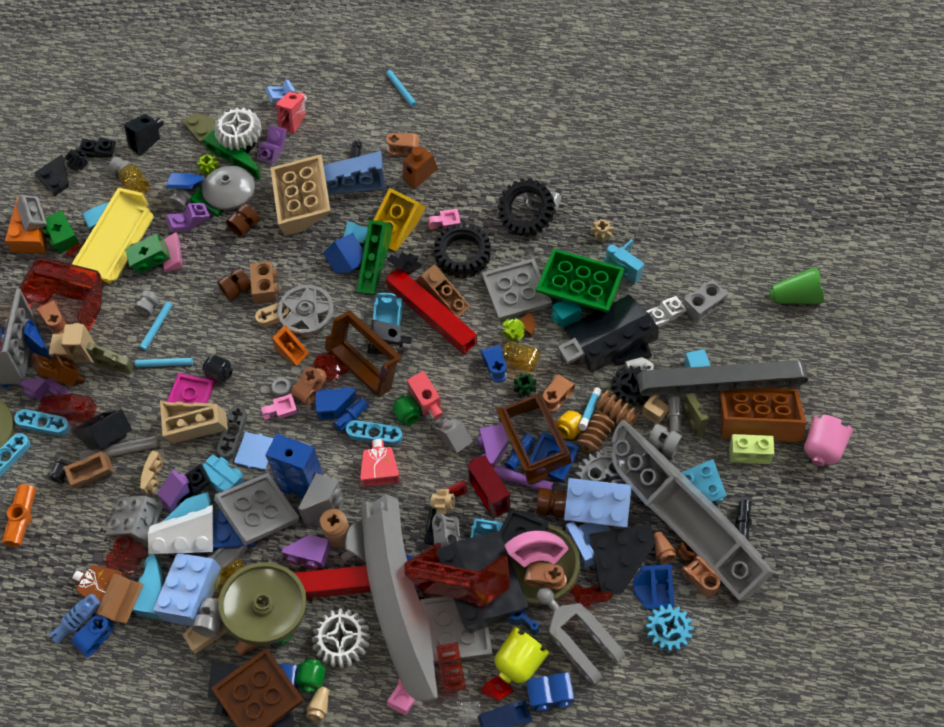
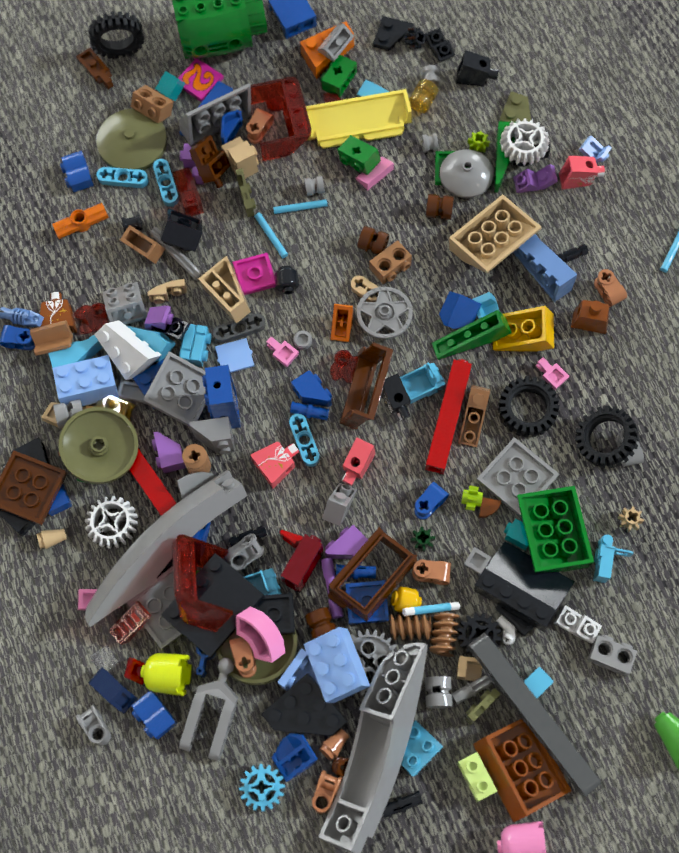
camera: 60 degrees right, 10 degrees up
(184, 181) = (443, 134): blue slope -> none
(192, 217) = (418, 165): medium lavender slope -> none
(308, 384) = (315, 360): nougat piece -> none
(310, 675) = (68, 517): green head -> none
(405, 262) = (481, 366): black slope -> none
(406, 410) = (337, 453): green head -> none
(442, 501) = (268, 533): tan gear -> none
(522, 356) = (450, 523): clear yellow piece -> none
(589, 595) = (253, 703): clear red plate -> none

